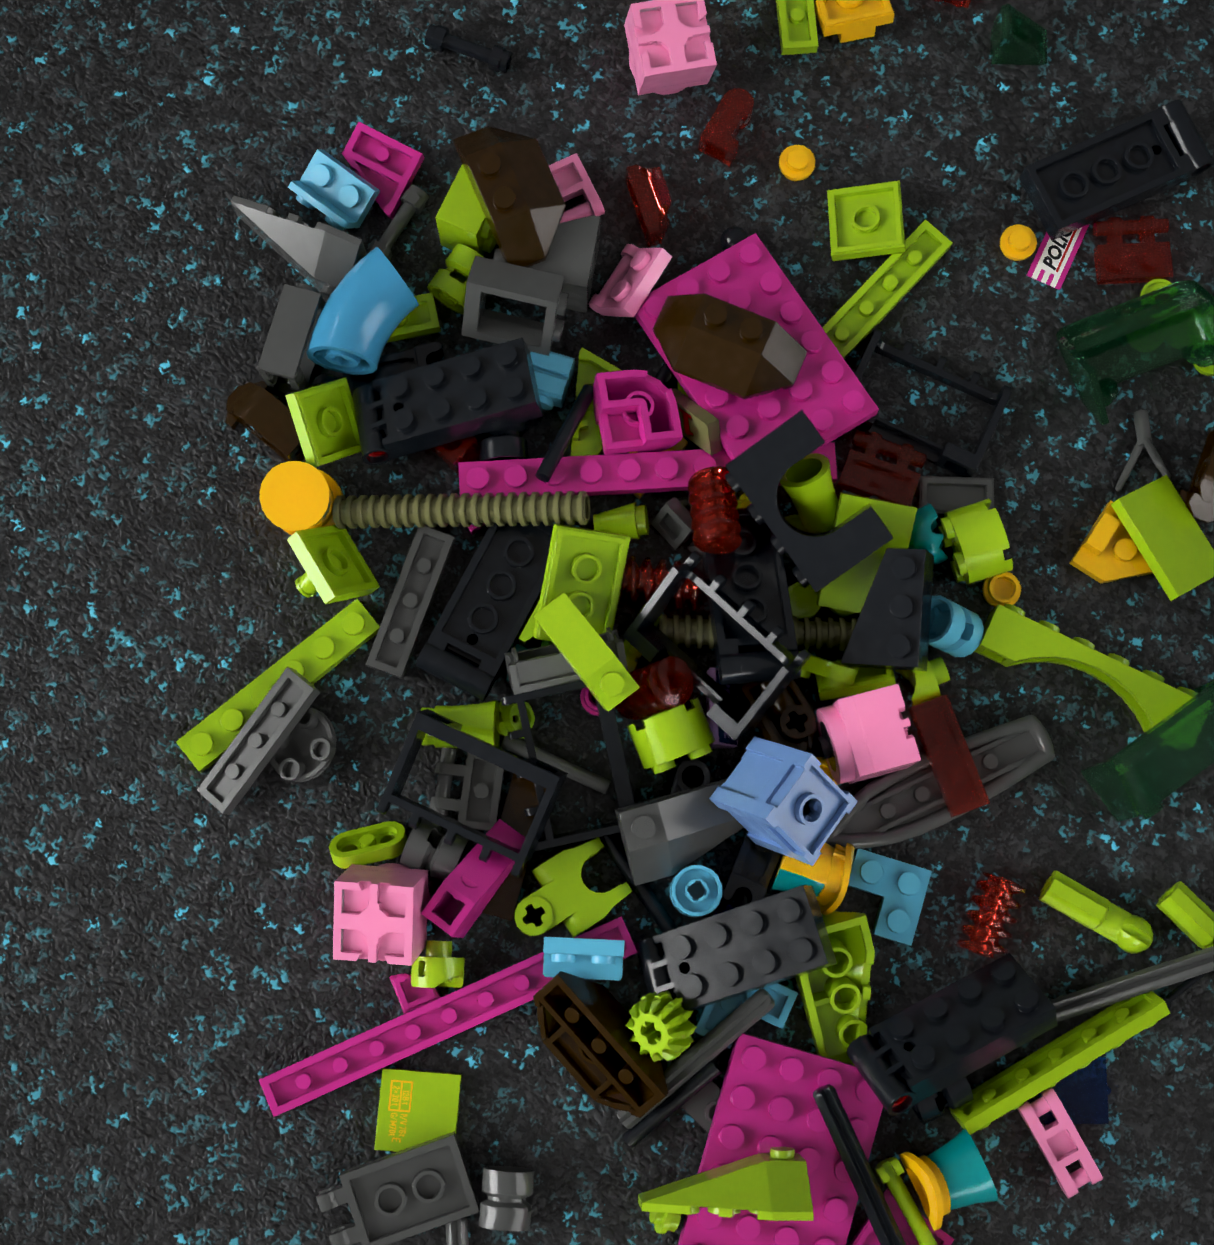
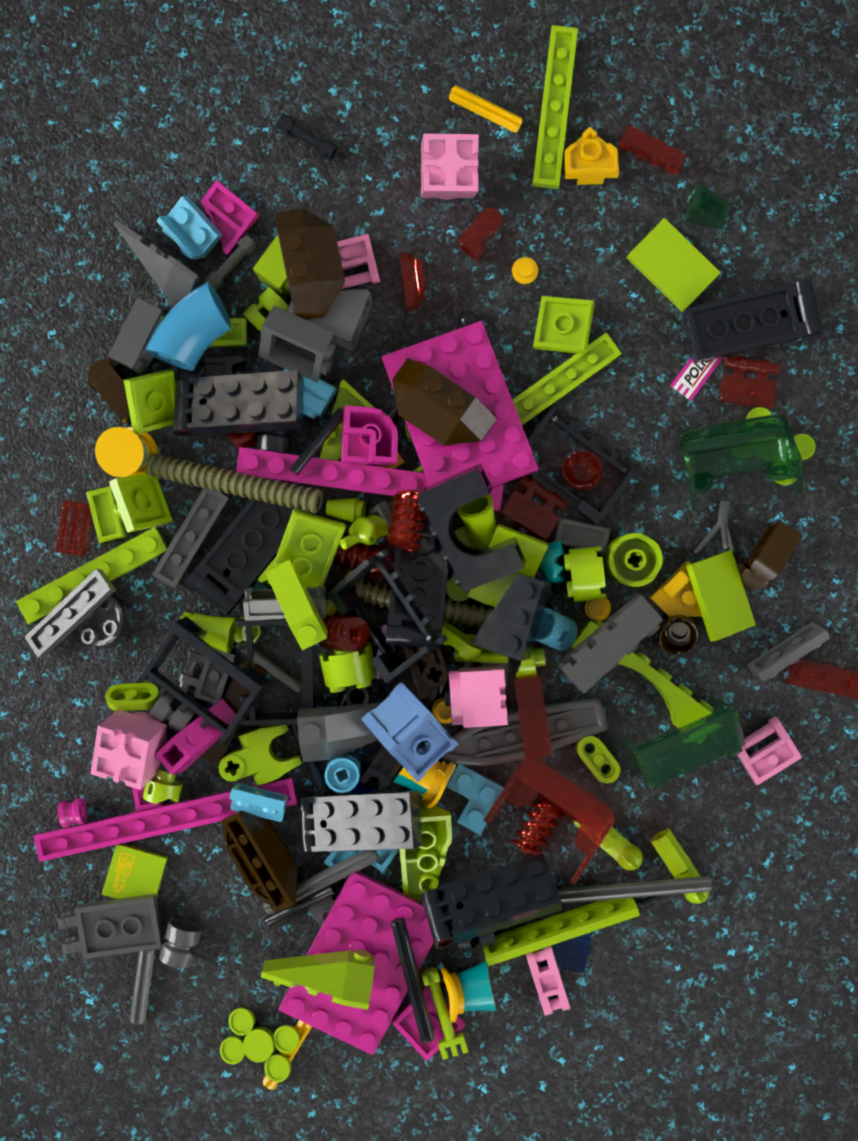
camera: 15 degrees right, 10 degrees up
(255, 633) = (73, 528): none -> clear red tile
(286, 604) = (106, 523): none -> lime tile
(310, 1033) = (72, 812): none -> dark pink wheel
(630, 281) = (386, 338): bright pink plate -> none
(657, 542) = (365, 531): none -> lime piece
(661, 1026) = (299, 859): lime gear -> none
(698, 424) = (409, 451): olive tile -> none
(936, 405) = (582, 470): none -> clear red hair
(992, 119) = (673, 265): none -> lime tile
(1018, 242) = (669, 361): yellow plate -> none
(1021, 854) = (539, 779): none -> clear red windscreen
(1033, 626) = (610, 643): none -> dark grey wedge
(1041, 491) = (645, 569): none -> lime brick
(1053, 799) = (597, 758): none -> lime plate
(1123, 602) = (678, 635): none -> dark brown hair

